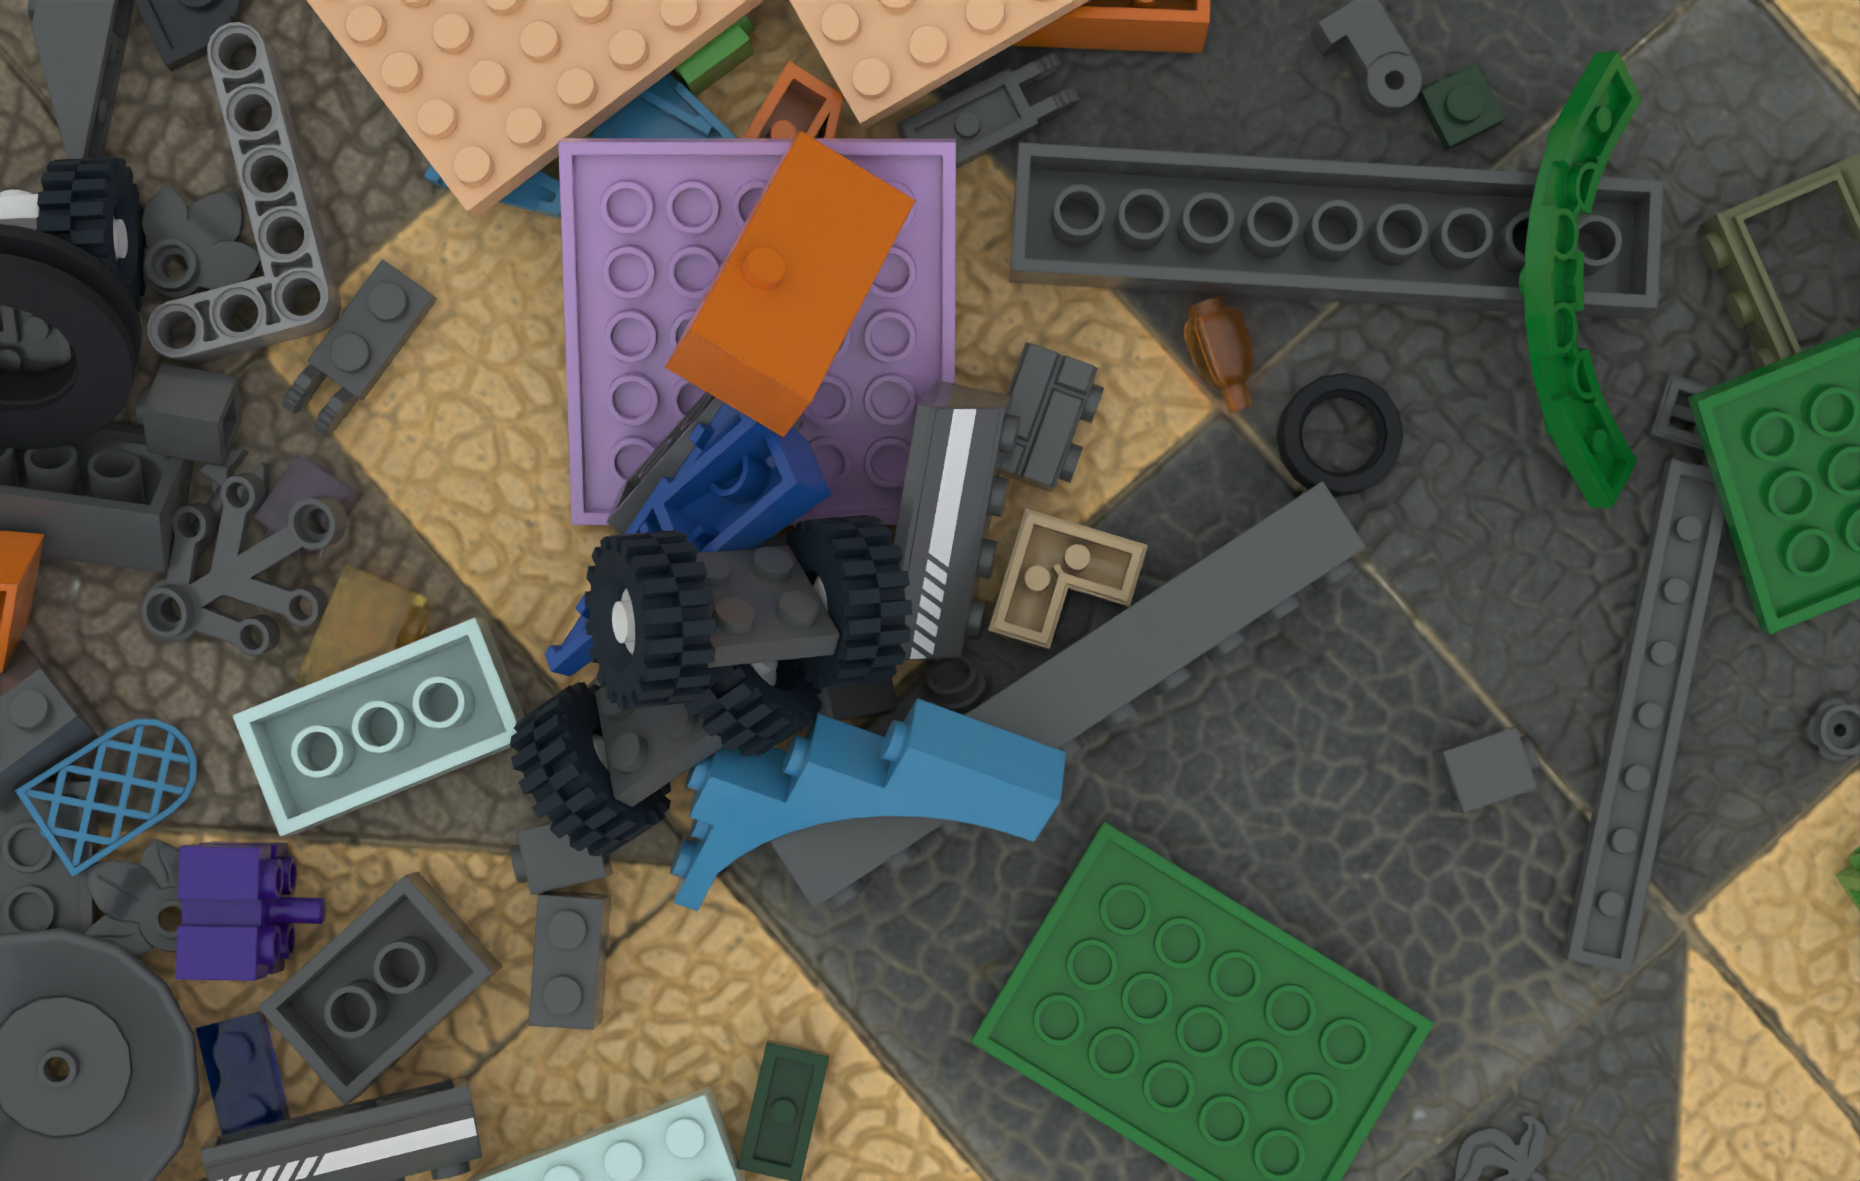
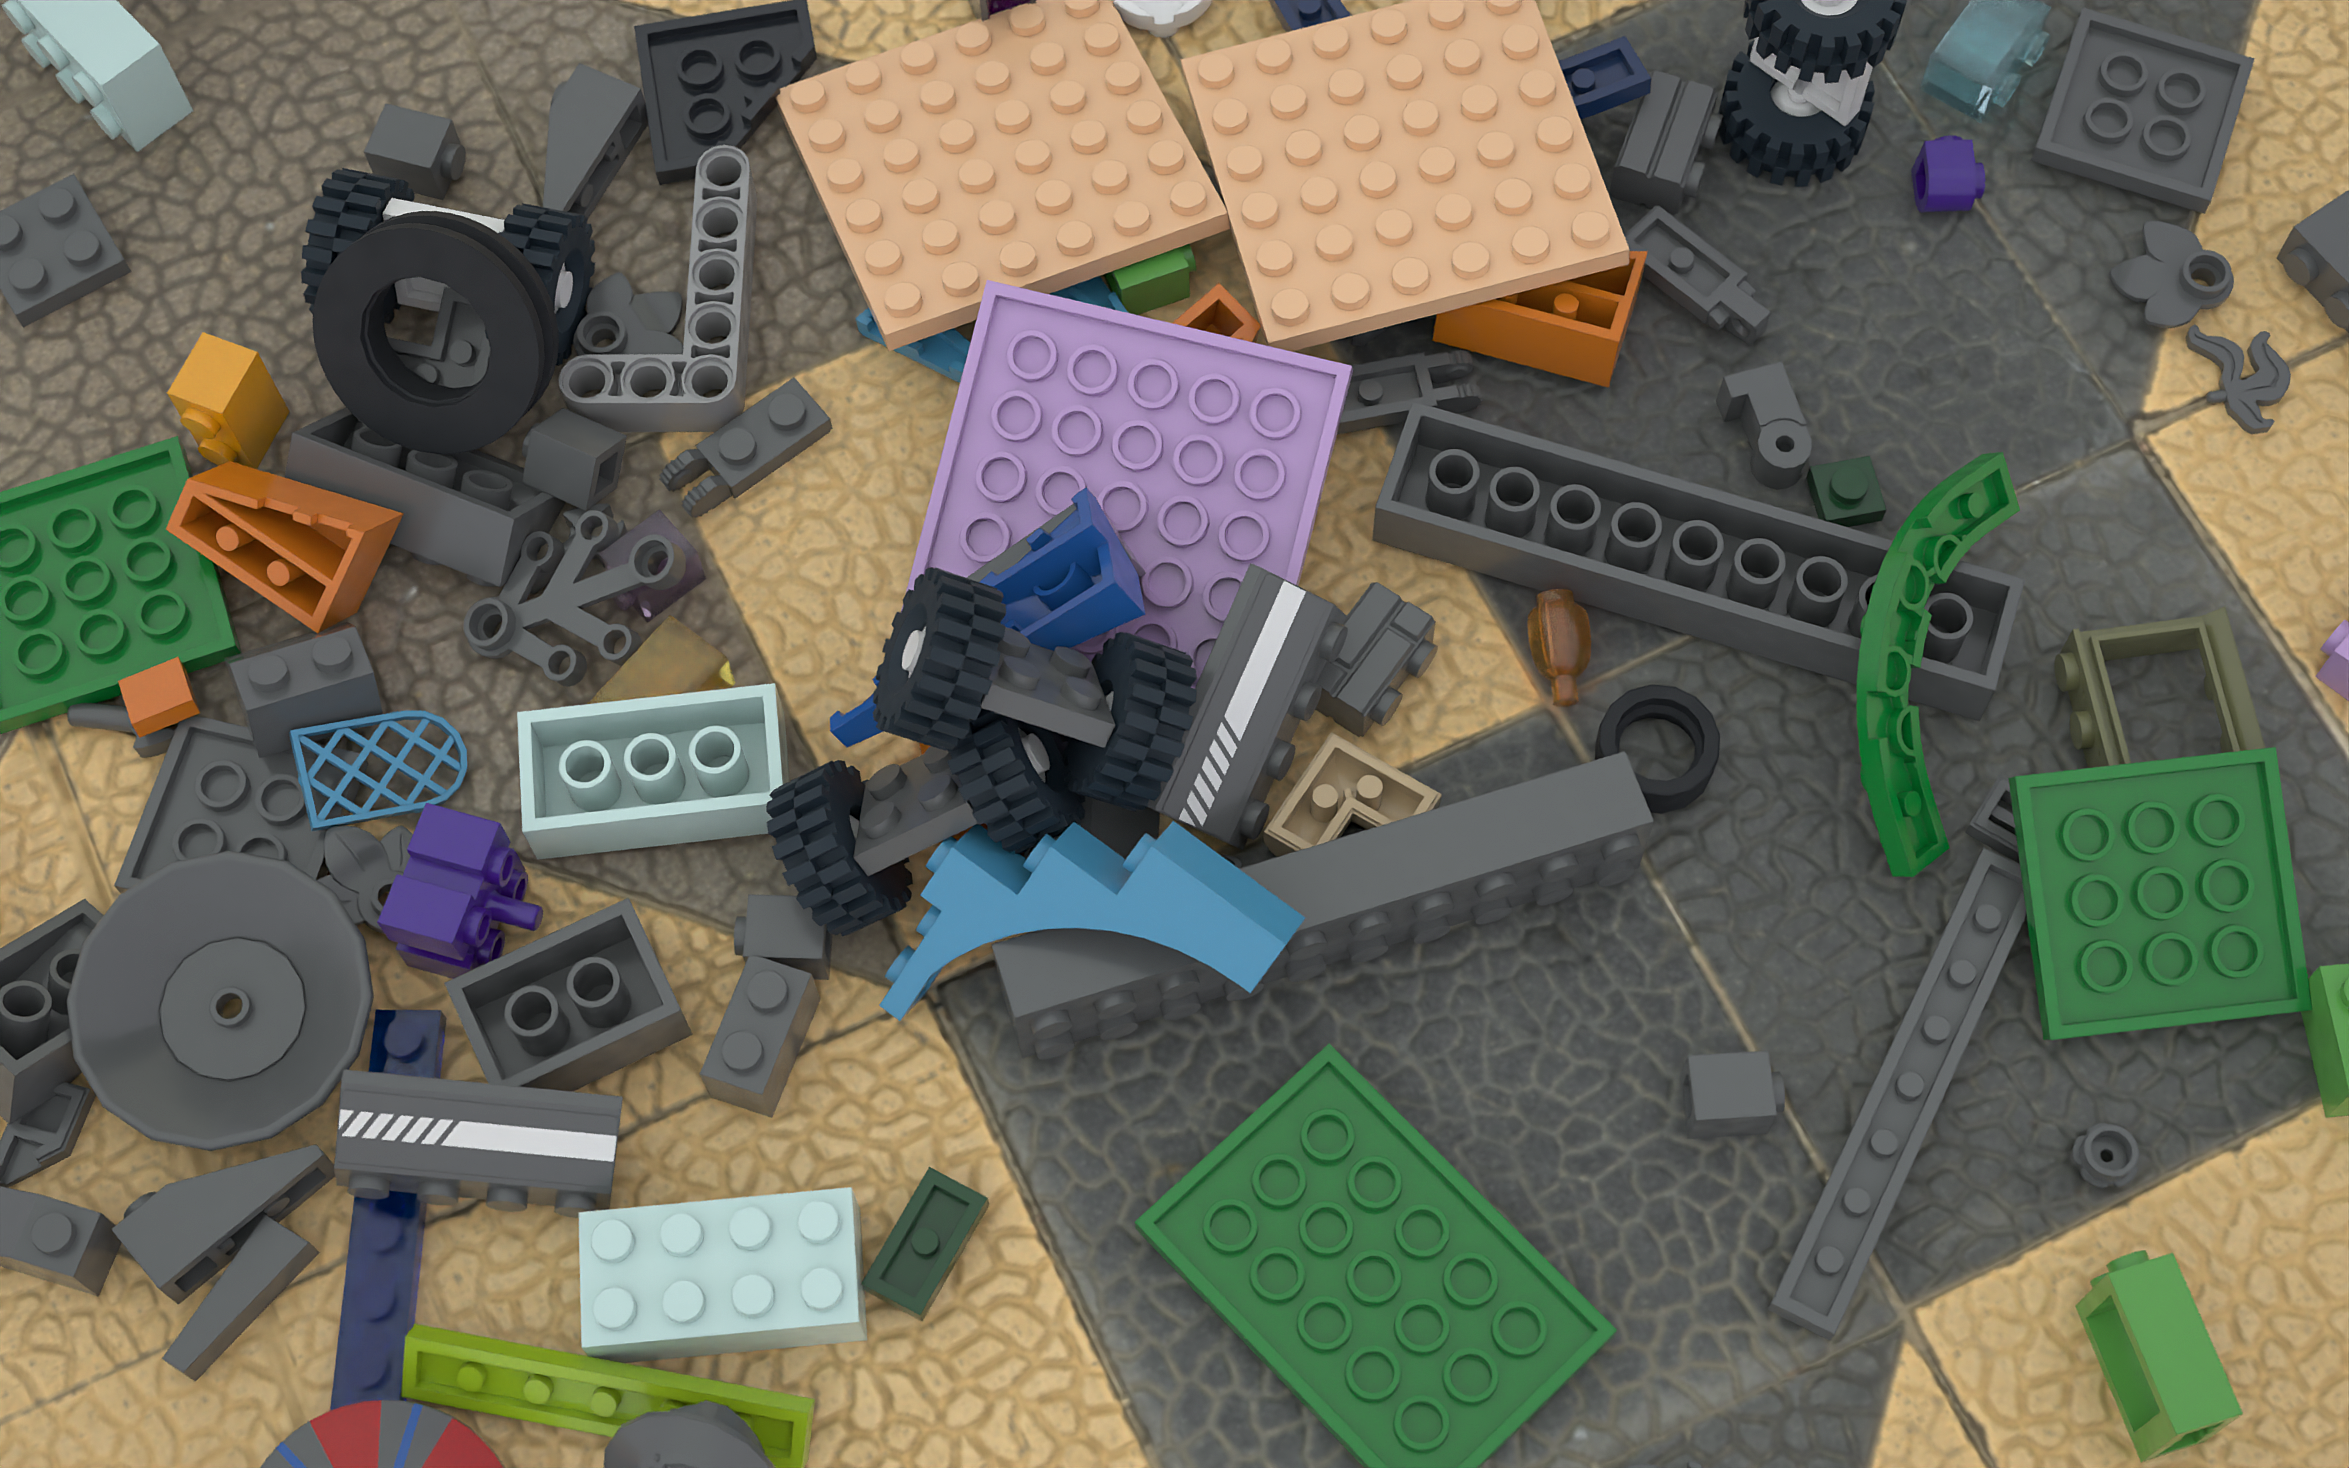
camera: 20 degrees right, 20 degrees down
(791, 285) = (1160, 423): orange brick -> none

